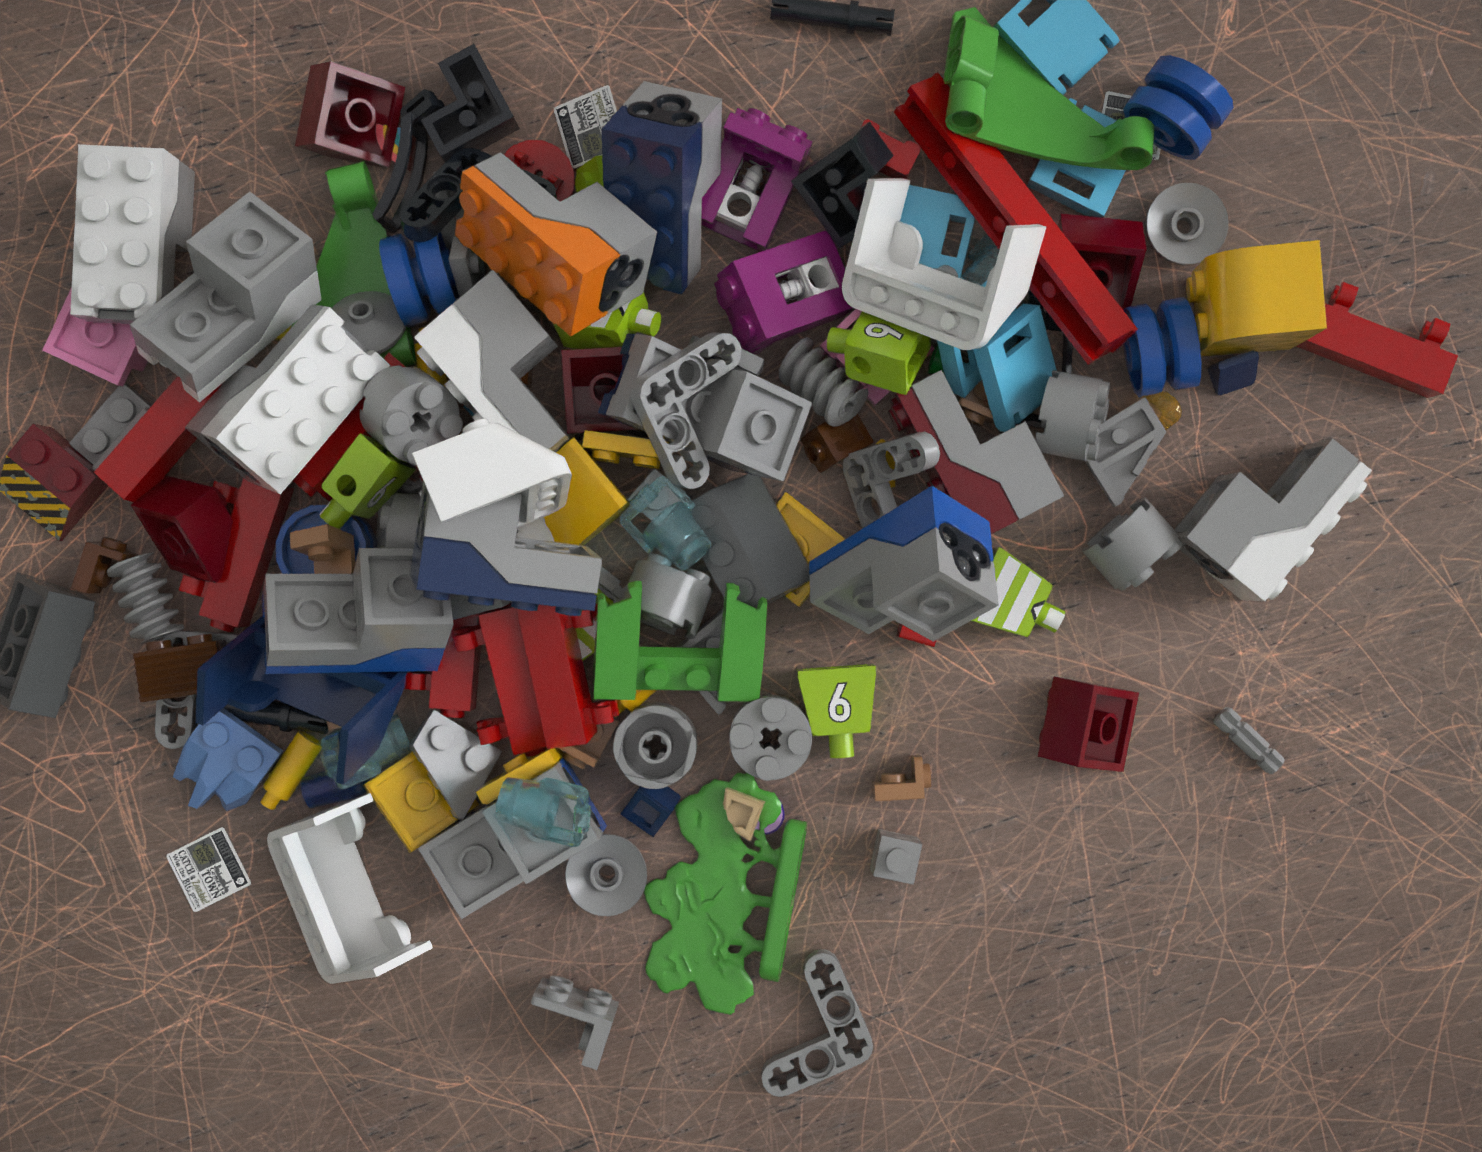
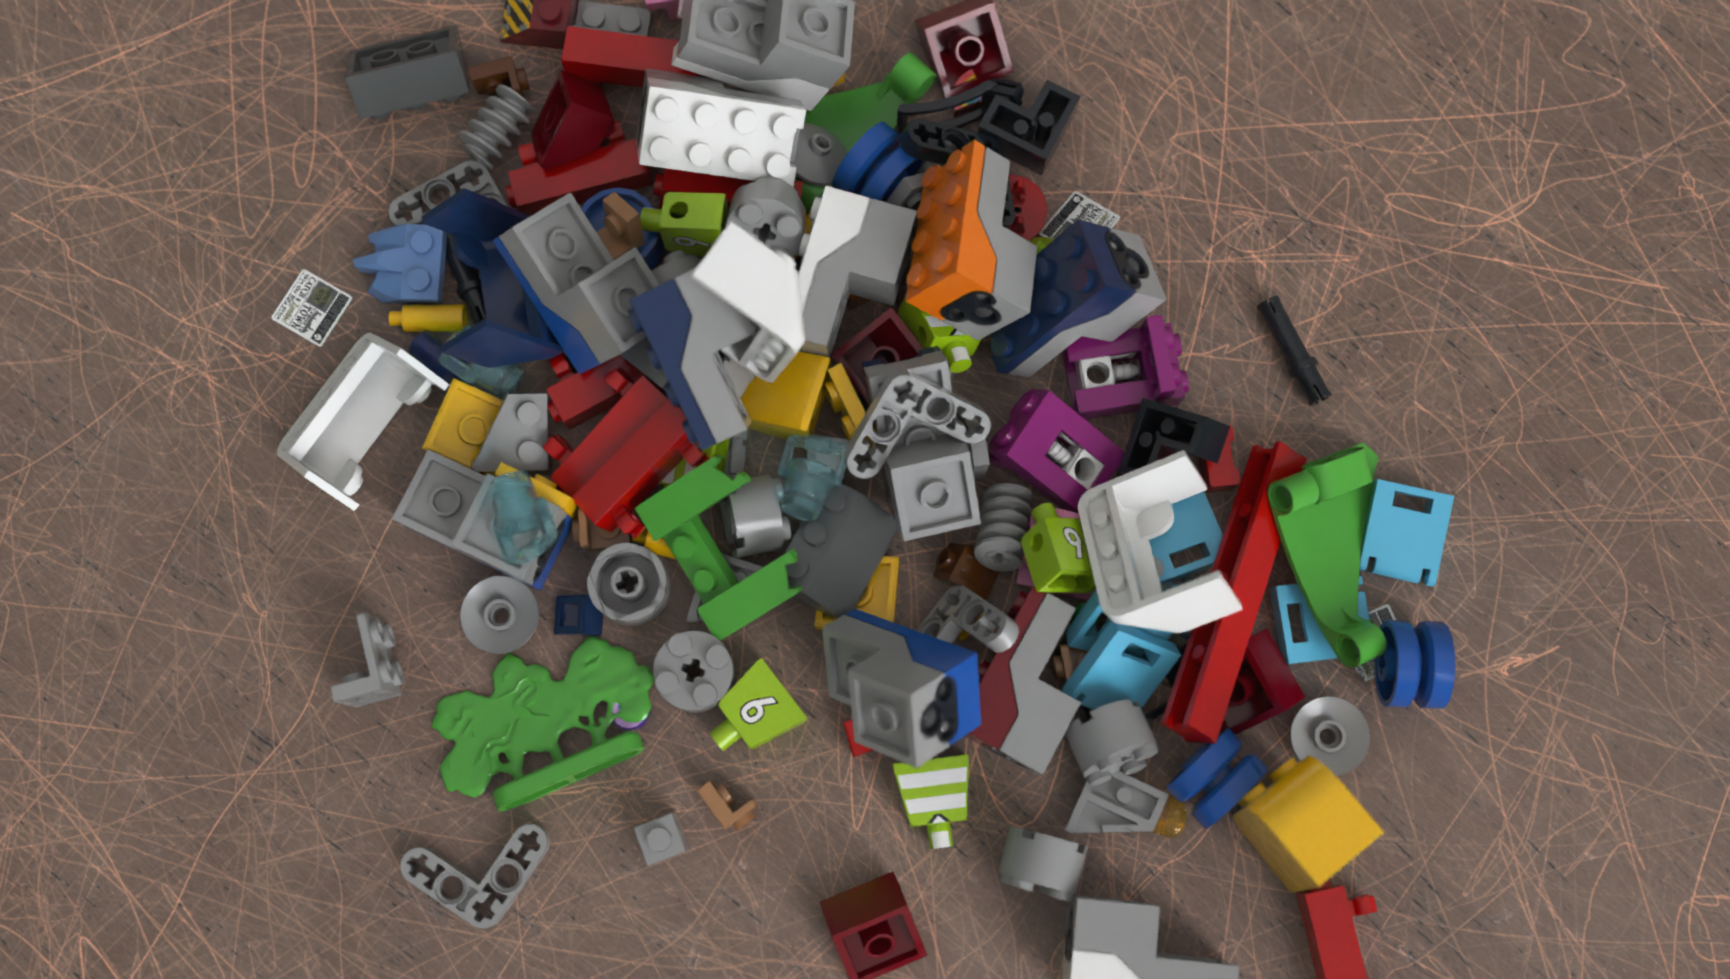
camera: 60 degrees right, 10 degrees down
(170, 670) = (450, 171): reddish brown brick -> none
(742, 811) = (619, 690): tan tile -> none
(1234, 372) = (1239, 857): dark blue slope -> none

